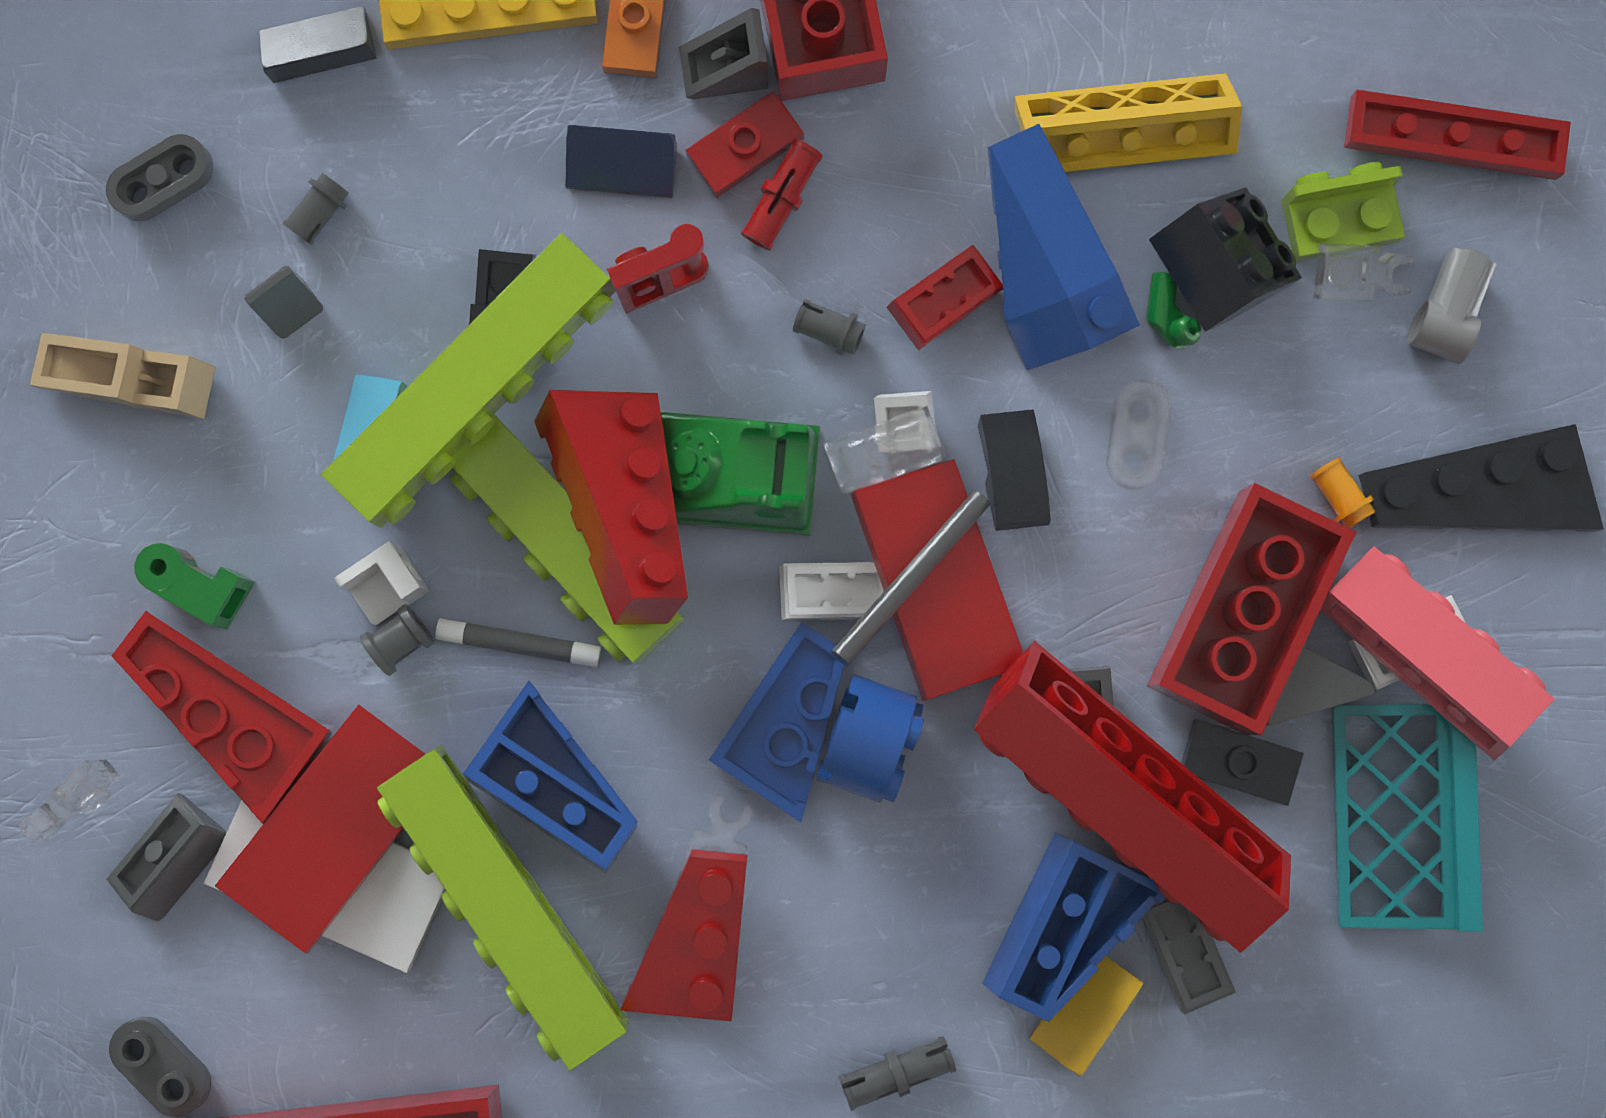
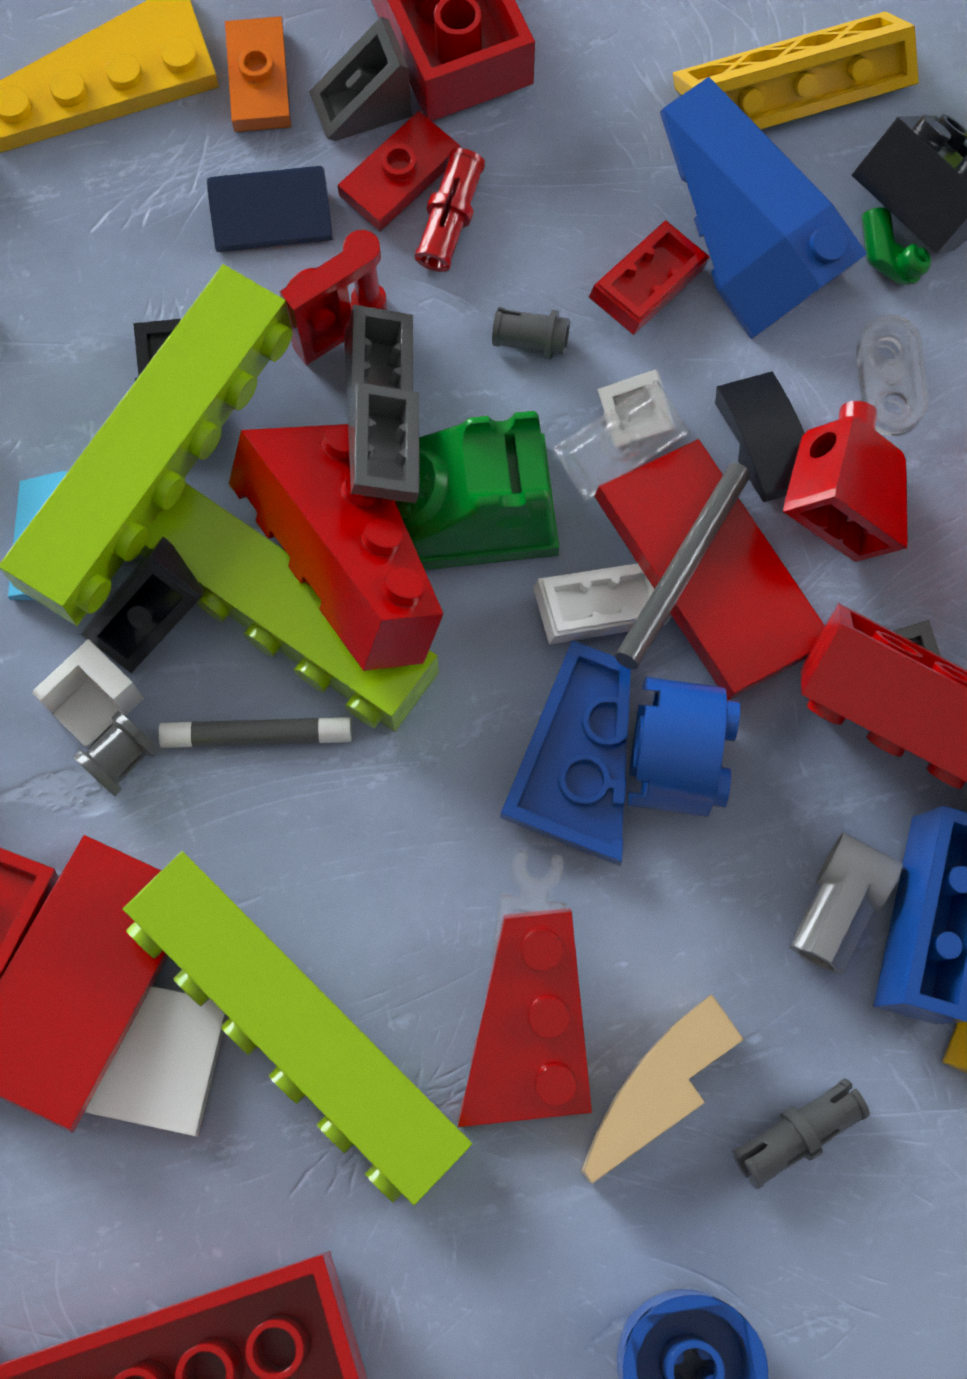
camera: 10 degrees left, 10 degrees down
(443, 518) = (144, 607): none -> black slope
(551, 783) = (326, 874): blue wedge -> none
(678, 384) = (382, 405): none -> dark grey slope
(788, 1014) = (659, 1087): none -> tan slope
(988, 882) = (851, 889): none -> light grey piece
(1072, 533) = (851, 485): none -> red torso

